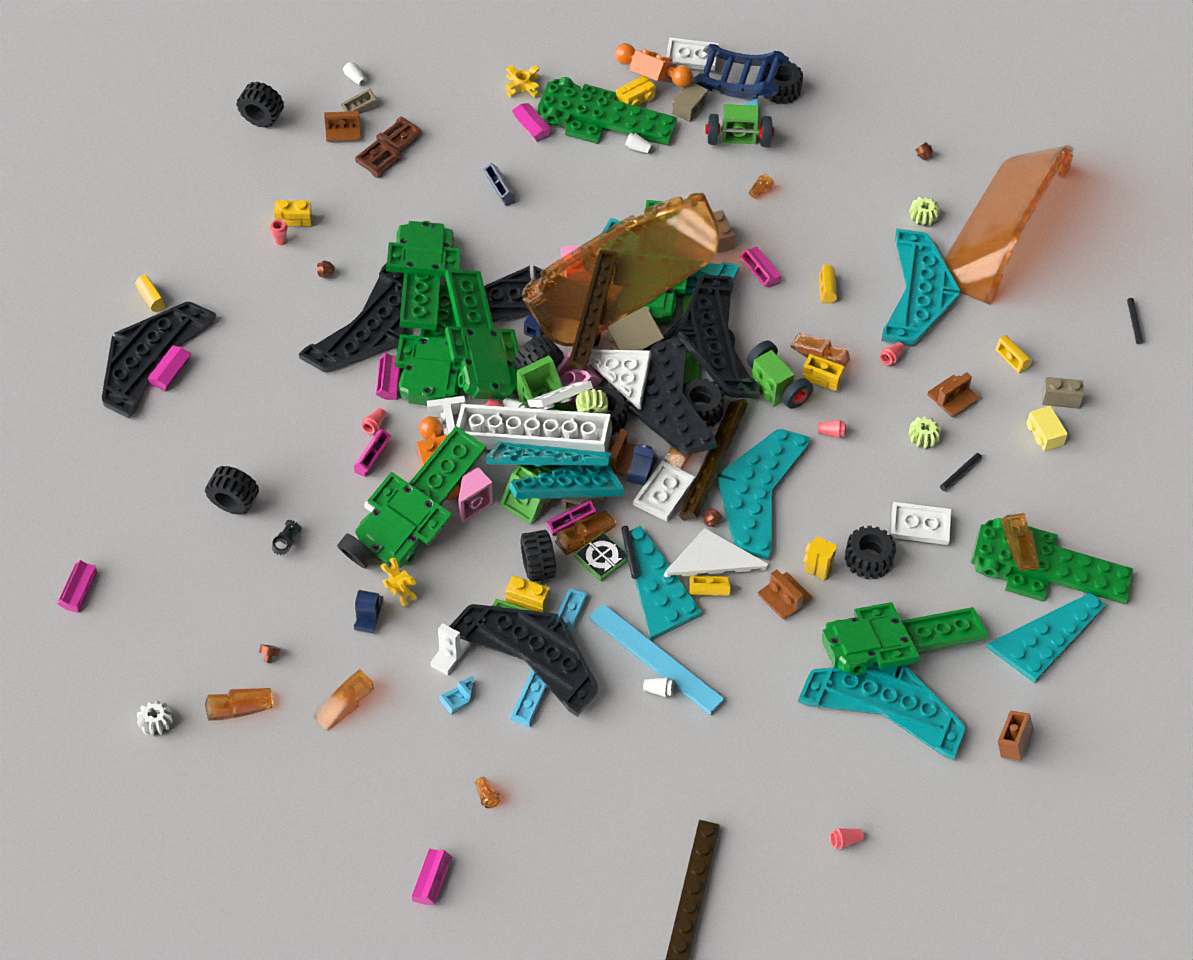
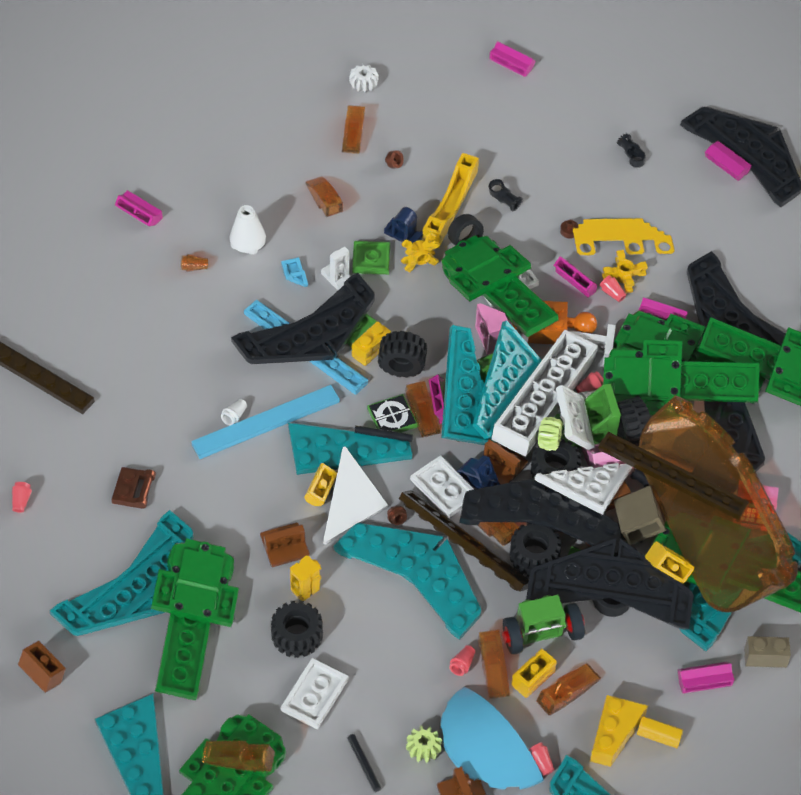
camera: 110 degrees right, 0 degrees up
(180, 448) = (631, 150): none -> black connector
(232, 490) = (562, 162): black tyre -> none
(276, 578) = (461, 180): none -> yellow arch
(294, 434) = (619, 229): none -> yellow piece
(307, 476) = (567, 228): none -> copper tile
(349, 415) = (625, 270): none -> yellow pin
(411, 634) = (371, 257): none -> bright green tile
(429, 752) = (247, 231): none -> white cone
(686, 290) = (669, 562): none -> yellow brick
(785, 750) = (127, 486): none -> copper plate
(824, 405) = (493, 664): none -> clear orange slope
(843, 310) = (615, 728): none -> yellow wedge
(899, 394) = (486, 743): none -> medium azure brick

